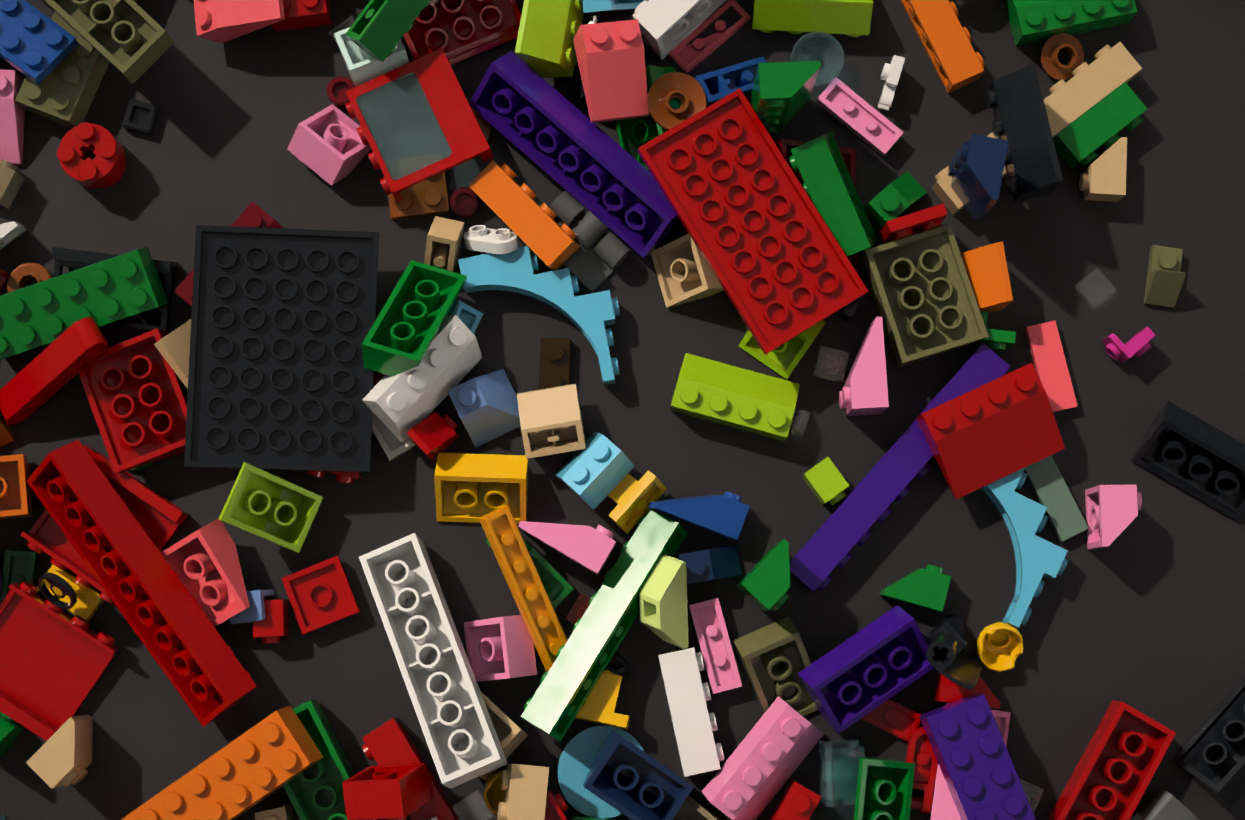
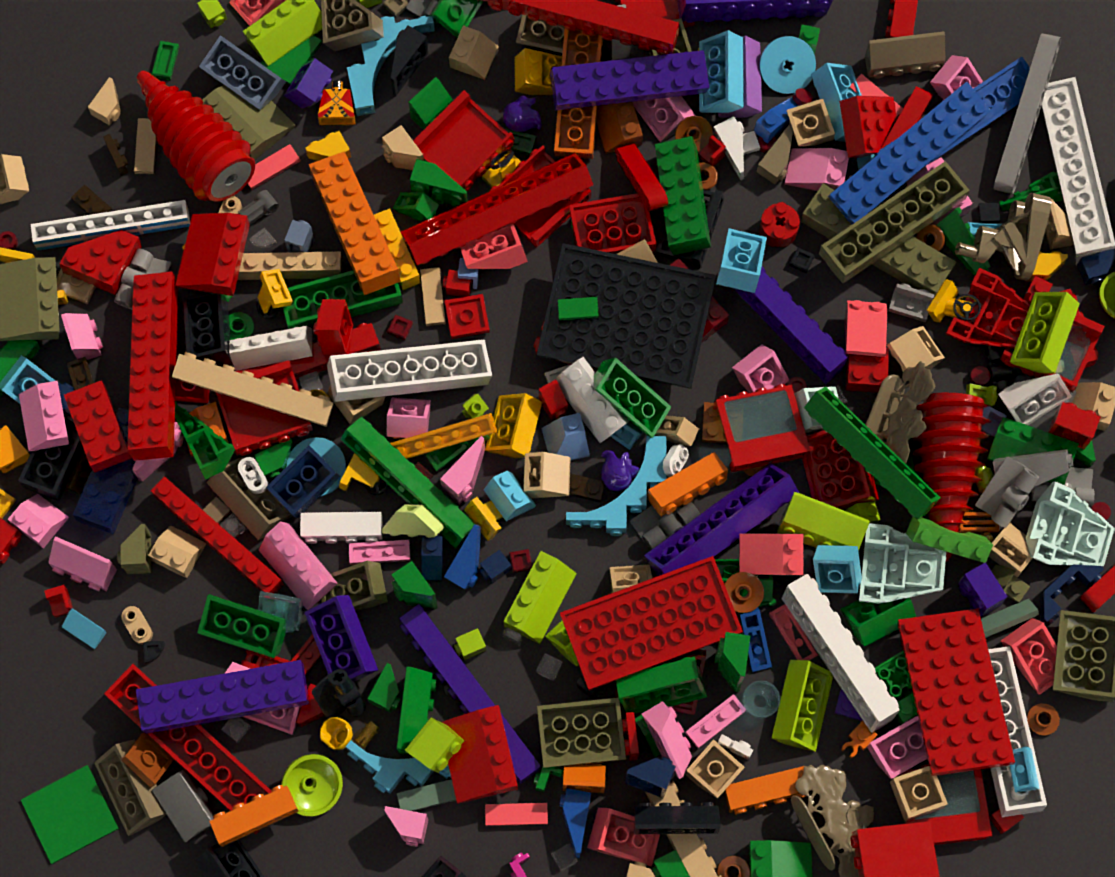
camera: 100 degrees right, 10 degrees down
(113, 691) = (436, 184): none -> green slope
(154, 713) = (416, 205): none -> green slope
(167, 188) = (741, 260): none -> medium azure slope
(230, 725) = (407, 270): none -> yellow brick
(236, 123) = (795, 328): none -> dark purple brick
(270, 507) = (526, 291): lime slope -> none
(286, 421) = (578, 308): none -> green tile
(297, 655) = (432, 296): none -> tan tile
(356, 694) = (400, 327): none -> dark red tile
(464, 202) = (704, 449): dark red tile -> none
(468, 549) = (474, 407): none -> lime bracket
(529, 319) = (617, 472): none -> dark purple hair
(683, 436) = (520, 561): none -> dark red tile
(703, 470) = (495, 567): none -> dark blue brick
(866, 384) = (532, 682): bright pink slope -> none
(908, 168) = (668, 736): none -> bright pink slope
(933, 103) = (714, 769): none -> tan slope
(945, 538) = (415, 706): none -> green slope
(993, 605) = (368, 732): none -> clear yellow pin
(1001, 491) = (435, 745): none -> lime slope
(1038, 281) = (575, 813): none -> blue slope
(1053, 222) = (615, 836): none -> coral slope
(1093, 656) = (324, 786): none -> lime dish
(1160, 735) = (254, 815): none -> orange brick

